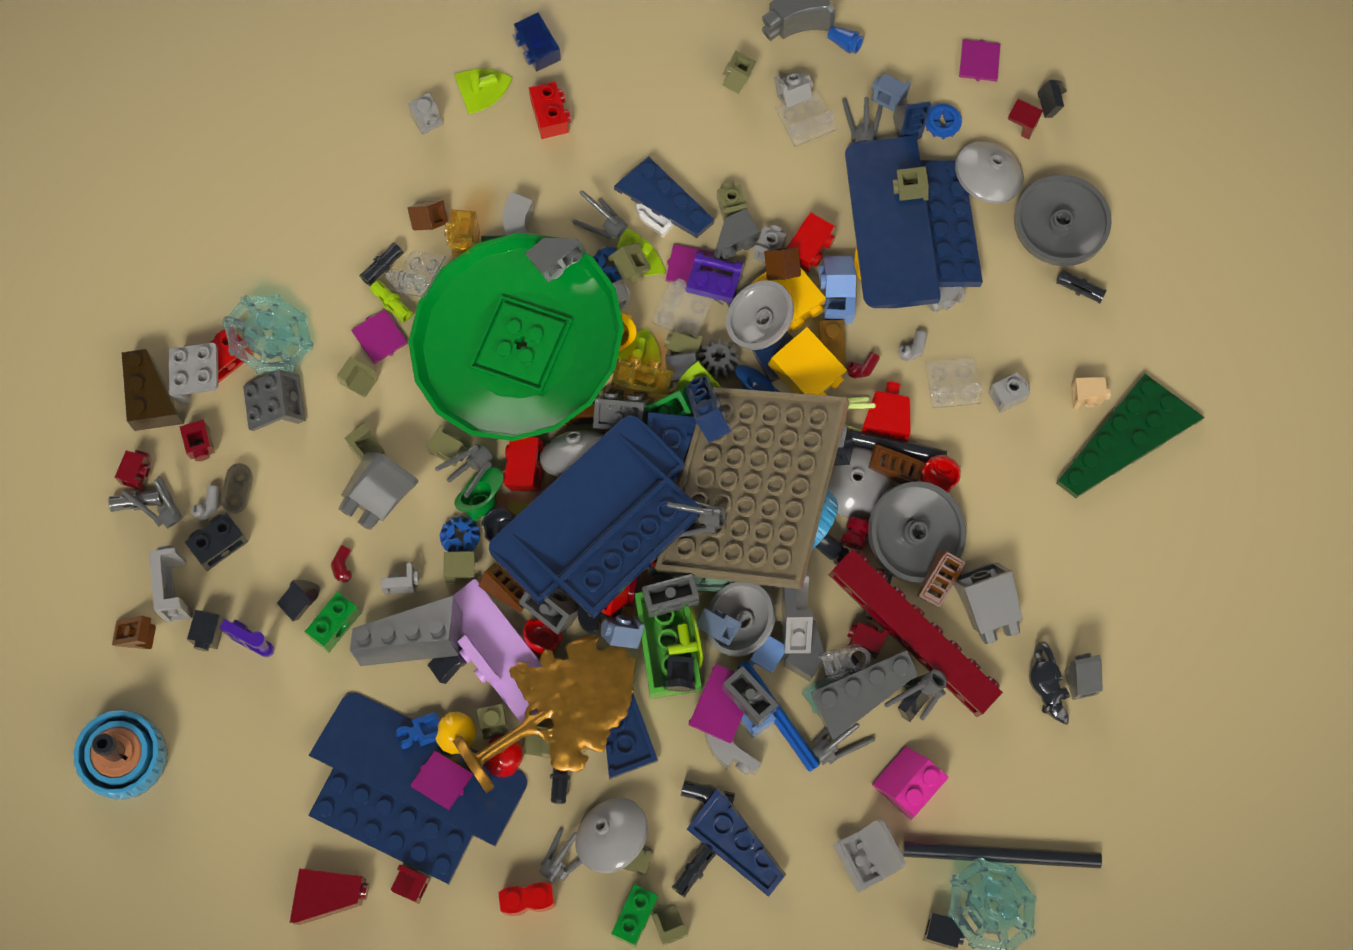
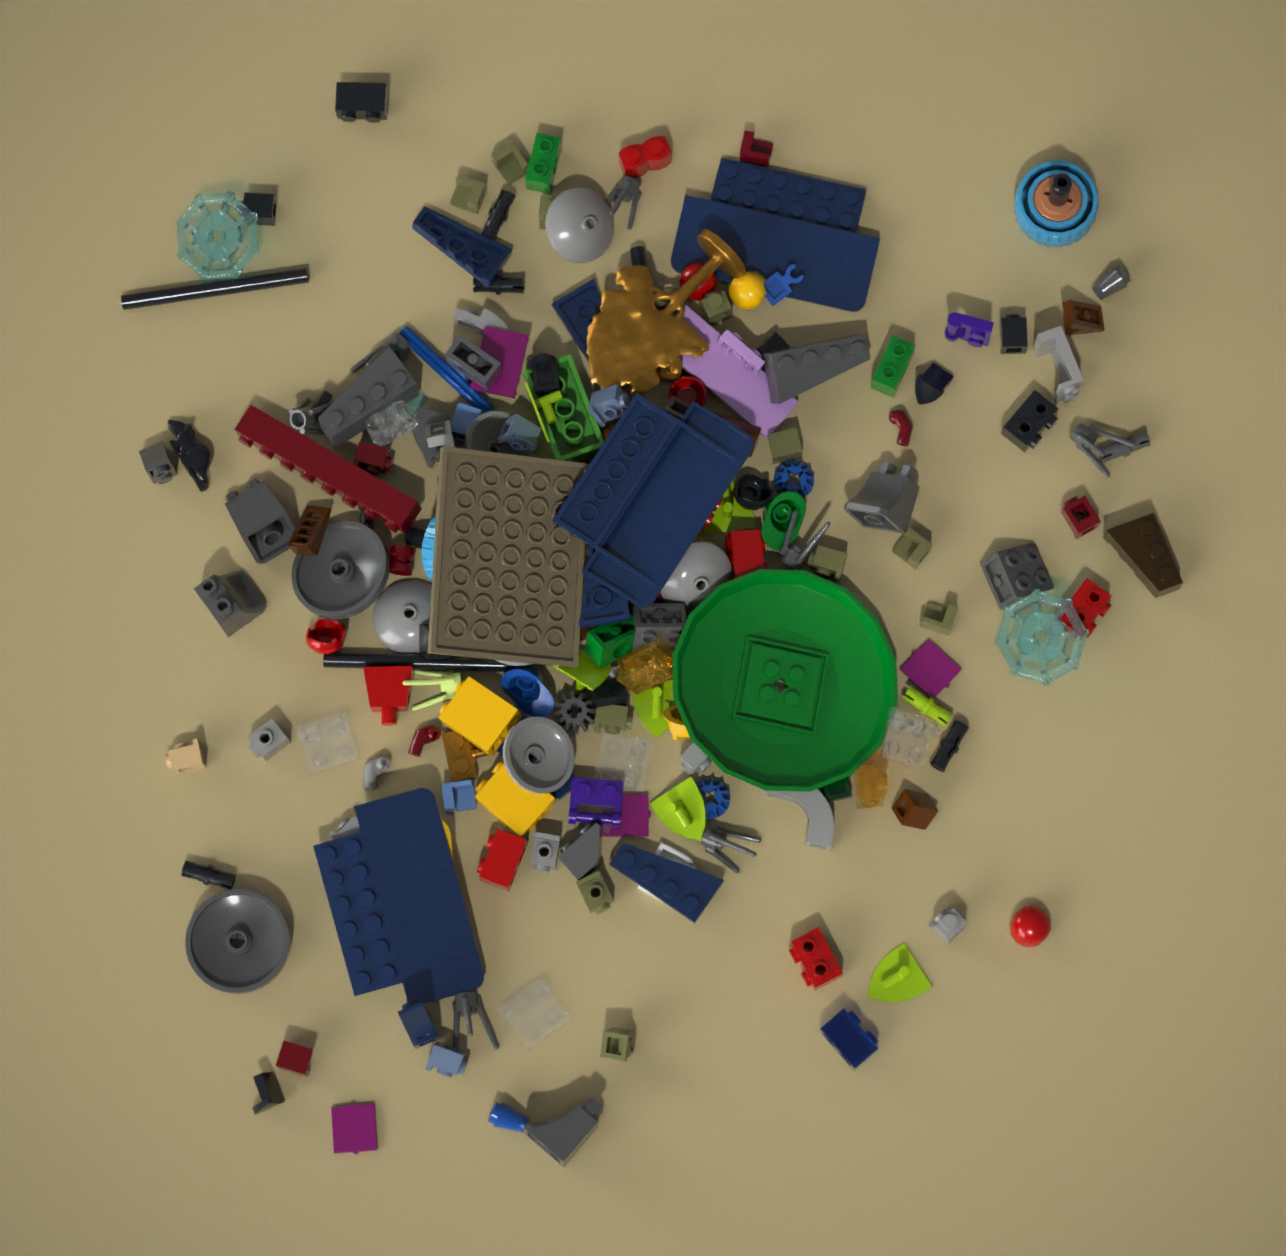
camera: 175 degrees right, 5 degrees up
(93, 663) = (1112, 282): none -> dark grey cone
(133, 469) = (1134, 474): dark red brick -> none
(192, 370) = (1104, 580): light grey bracket -> none
(207, 508) = (1050, 456): light grey arm -> none
(236, 489) = (1027, 480): clear smoke plate -> none
(325, 894) = (829, 125): dark red slope -> none
(354, 102) = (1030, 926): none -> red hair
(400, 585) = (841, 416): light grey bracket -> none
(441, 780) = (751, 243): magenta piece -> none
(554, 255) = (765, 760): dark grey slope -> none
(630, 262) = (685, 788): olive brick -> none
(670, 595) = (569, 438): dark grey brick -> none
(707, 408) = (570, 632): dark blue slope -> none
(711, 516) = (543, 511): dark grey plant -> none
(720, 900) = (468, 194): none -> olive panel
(782, 263) = (526, 819): reddish brown panel -> none
(793, 88) = (547, 1035): light grey brick -> none
(838, 276) = (465, 823): medium blue brick -> none
(870, 855) = (338, 257): light grey bracket -> none
(910, 782) = (309, 333): dark pink slope -> none
(911, 184) = (394, 930): olive brick -> none
(911, 467) = (356, 635): reddish brown slope -> none
(949, 114) = (374, 1033): blue gear -> none
(989, 172) = (339, 982): light grey dish -> none
(1029, 527) = (231, 600): none -> dark grey hips
(1136, 428) = (133, 733): dark green wing -> none

